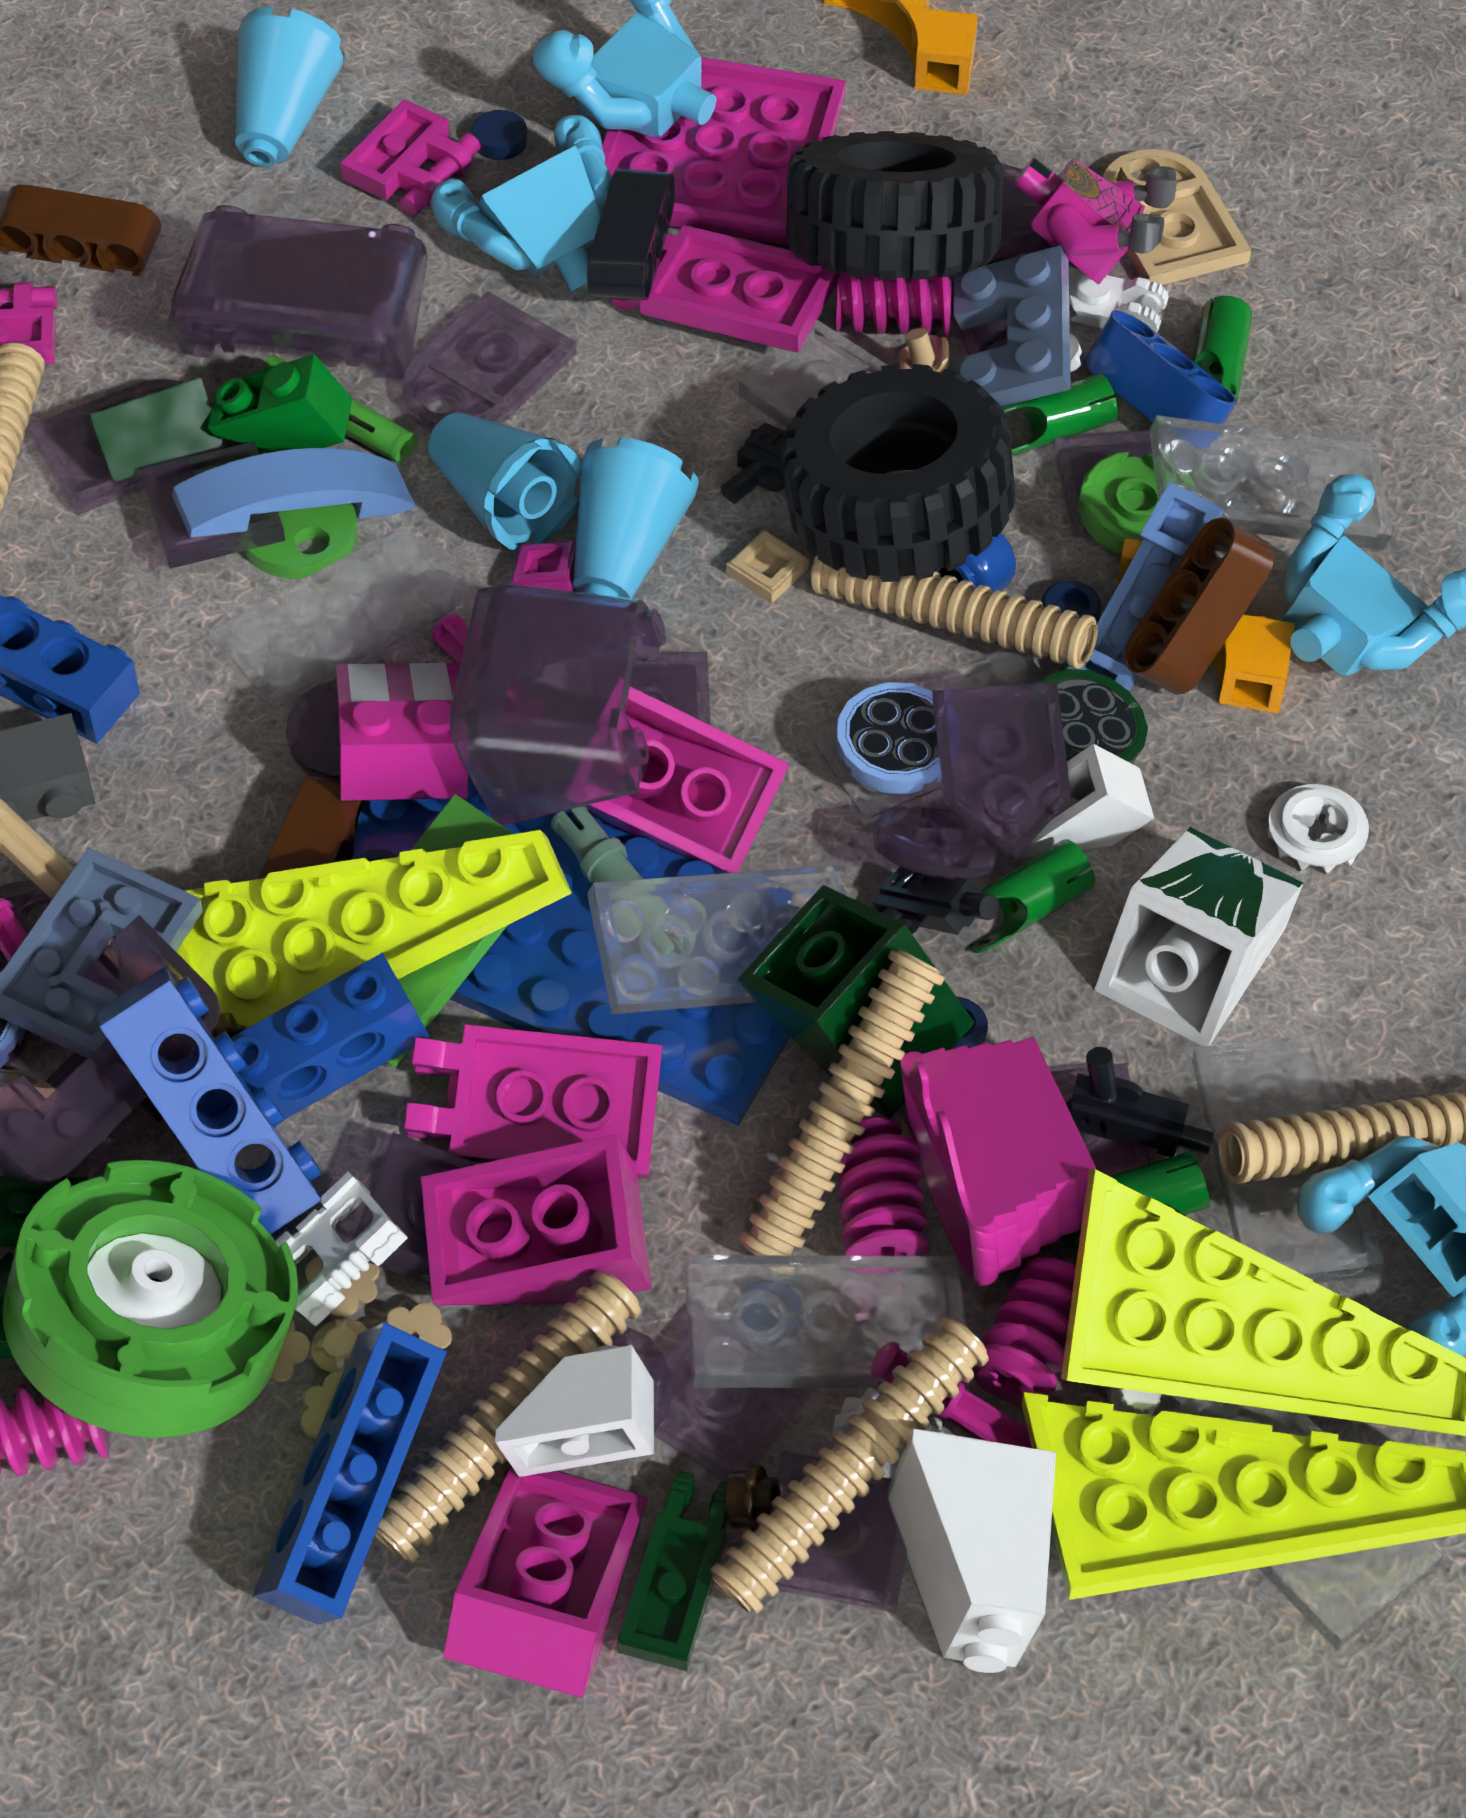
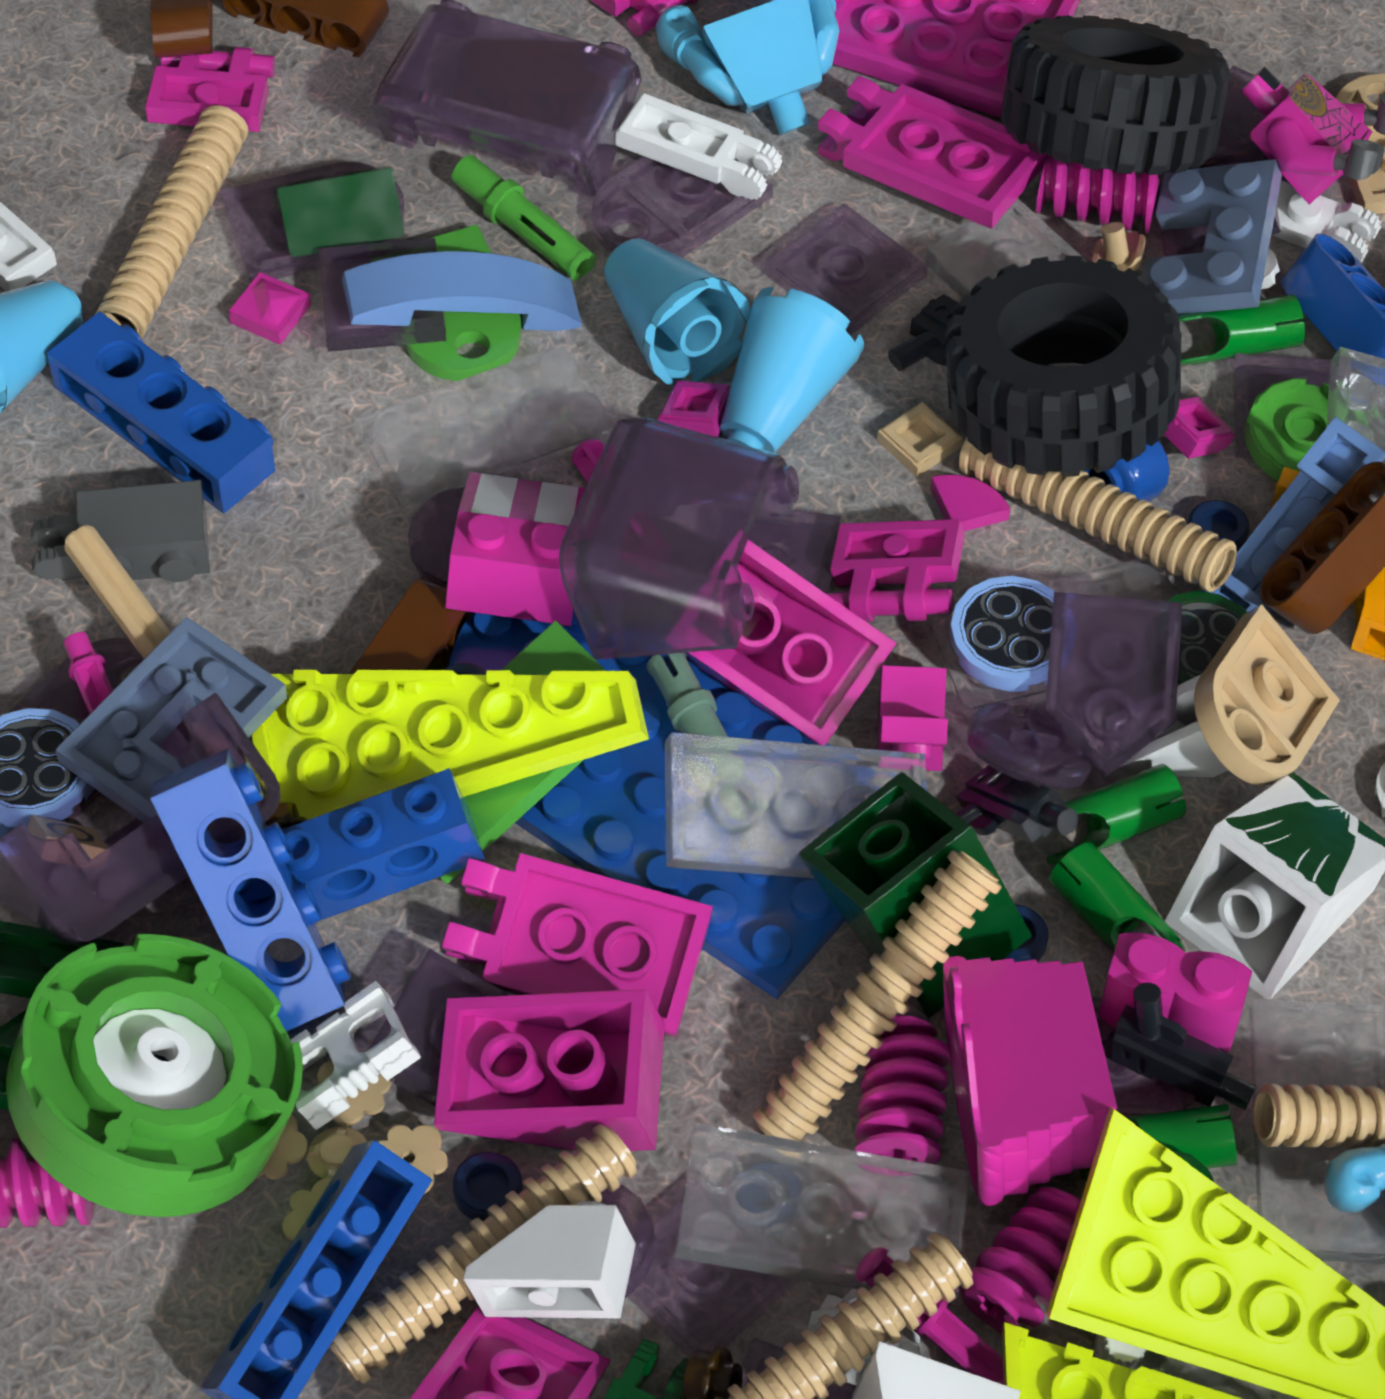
camera: 10 degrees right, 0 degrees up
(101, 535) = (269, 308): none -> dark pink tile
(283, 407) = (468, 208): green slope -> none
(490, 1349) = (484, 1182): none -> dark blue tile
(496, 313) = (698, 146): none -> white hinge
(631, 234) = (845, 86): black beam -> none
(663, 407) = (847, 266): none -> clear purple tile
(771, 679) = (897, 554): none -> dark pink plate
(816, 827) = (913, 712): none -> dark pink brick
(826, 620) = (969, 501): none -> dark pink tile
(1035, 516) = (1198, 429): none -> dark pink tile
(1038, 980) = (1104, 896): none -> green piece
(1146, 1046) = (1197, 987): none -> dark pink brick
(1148, 764) = (1266, 697): none -> tan tile

